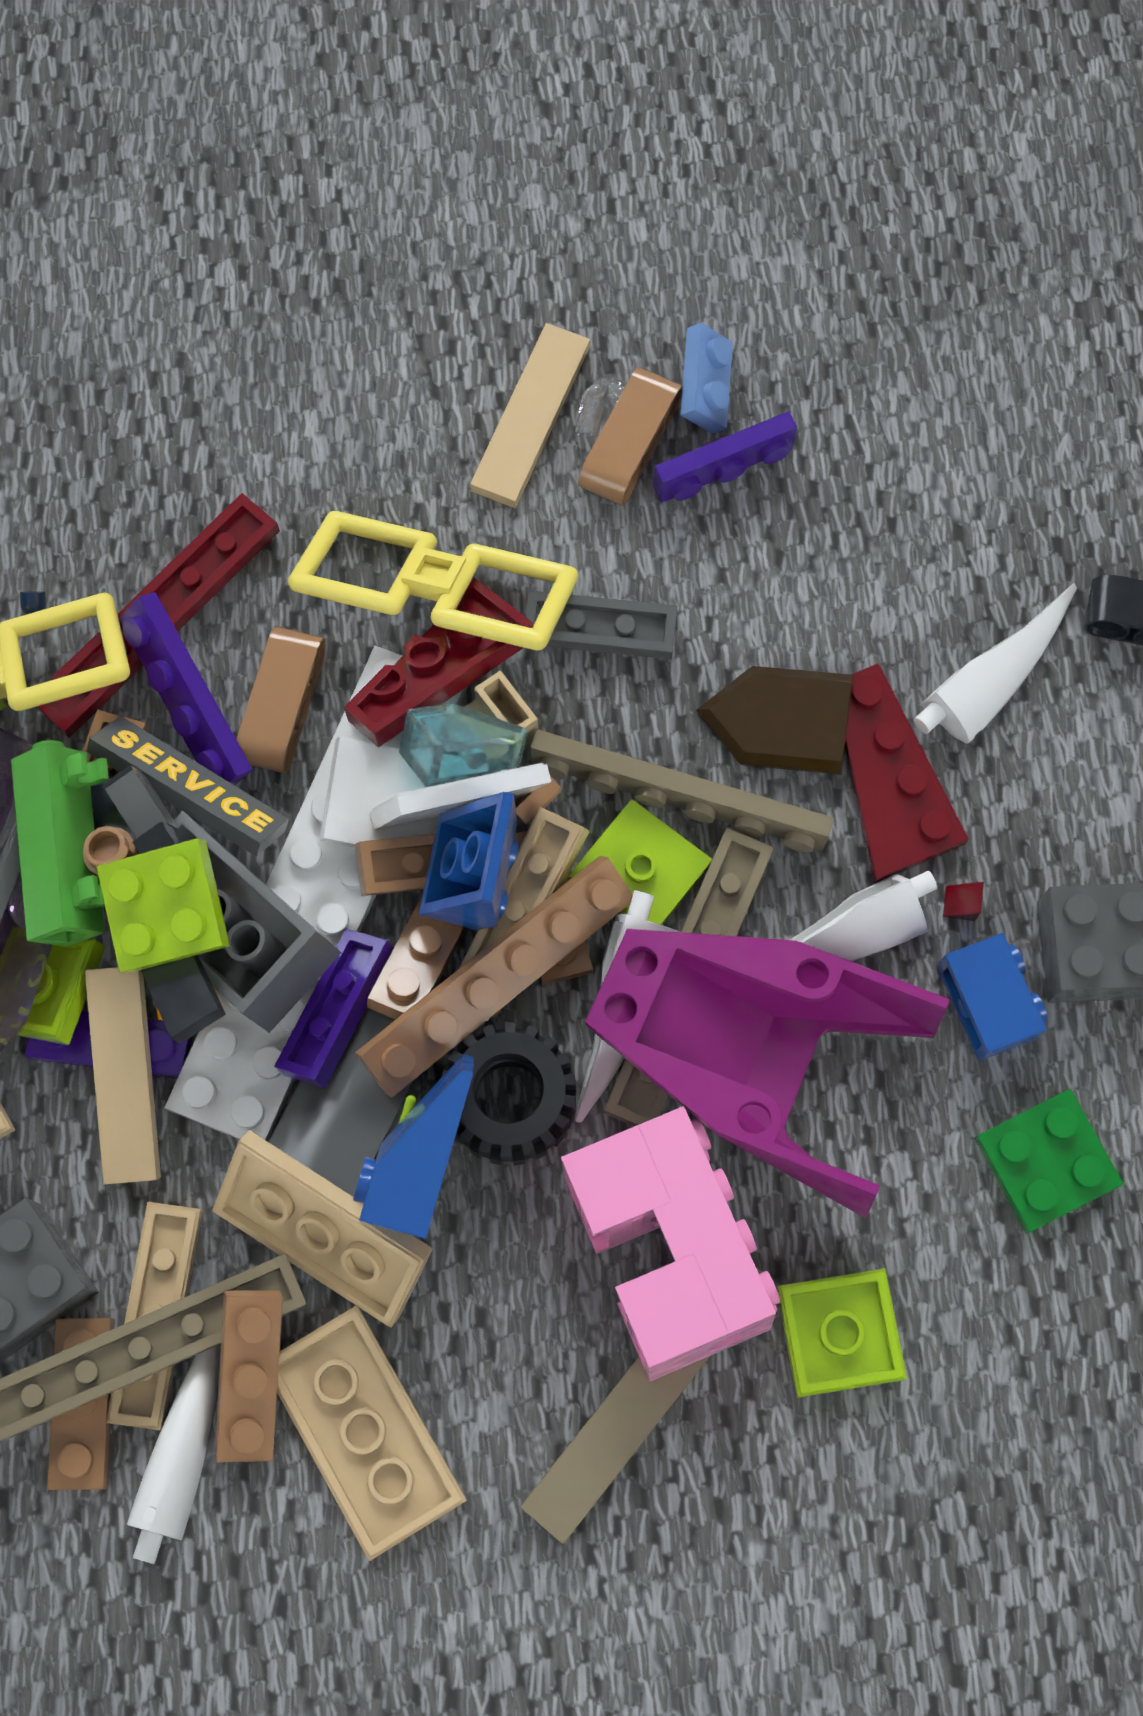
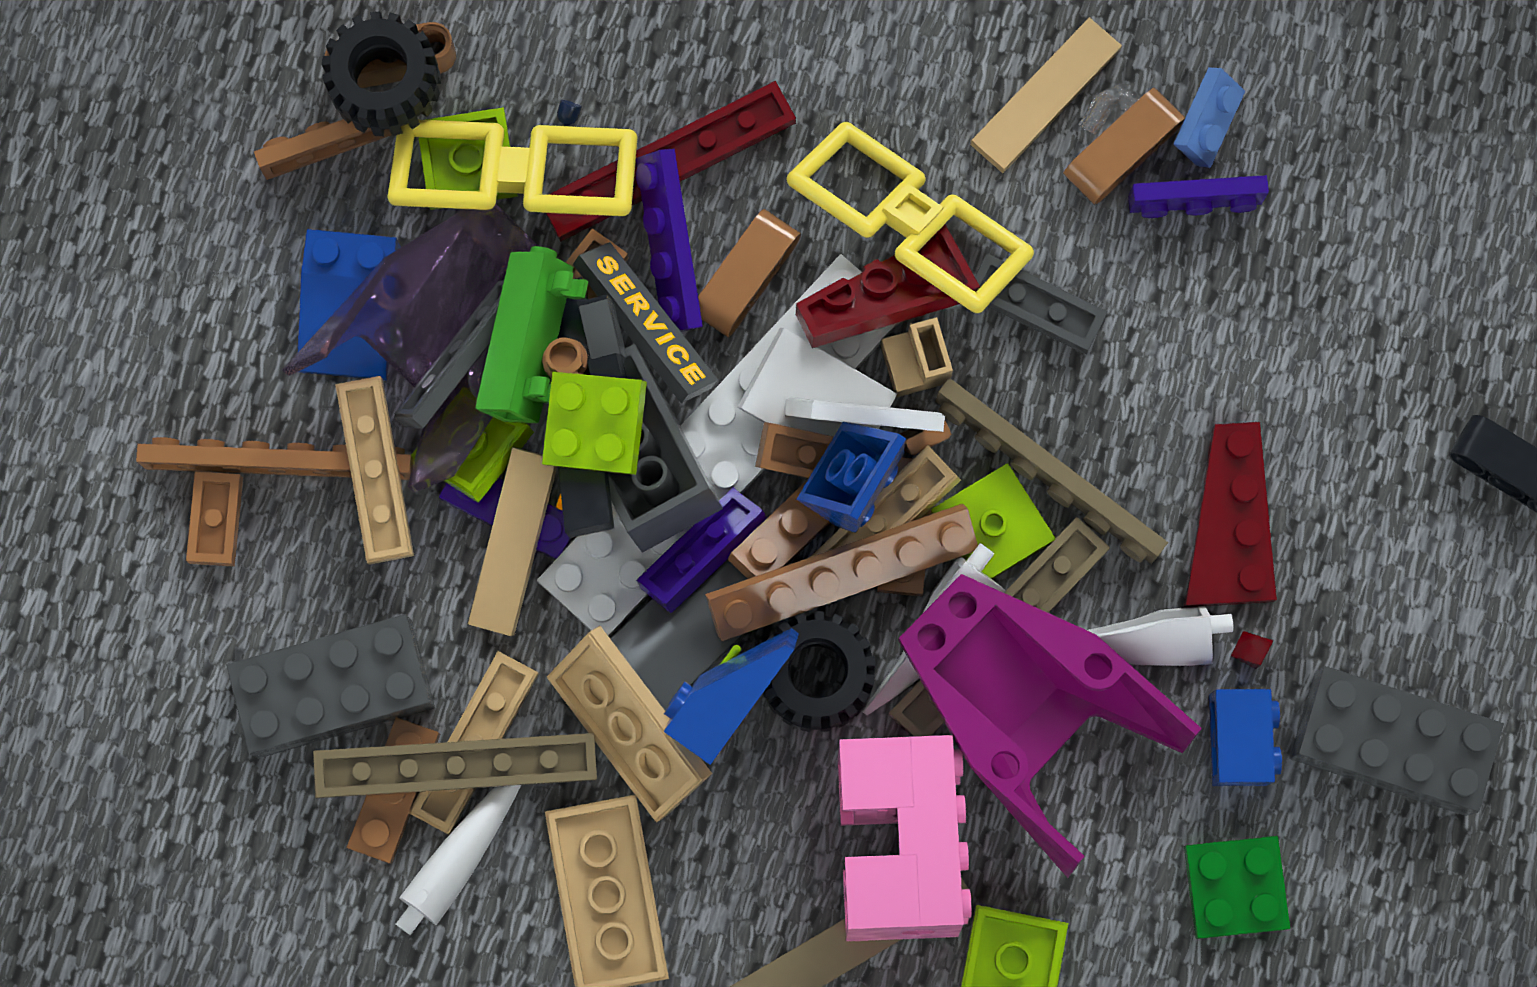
camera: 20 degrees right, 5 degrees up
(248, 1376) = (532, 818): medium nougat plate -> none
(458, 744) = (879, 370): clear light blue slope -> none
(783, 718) = (1161, 440): dark brown tile -> none
(987, 683) = (1345, 472): white piece -> none

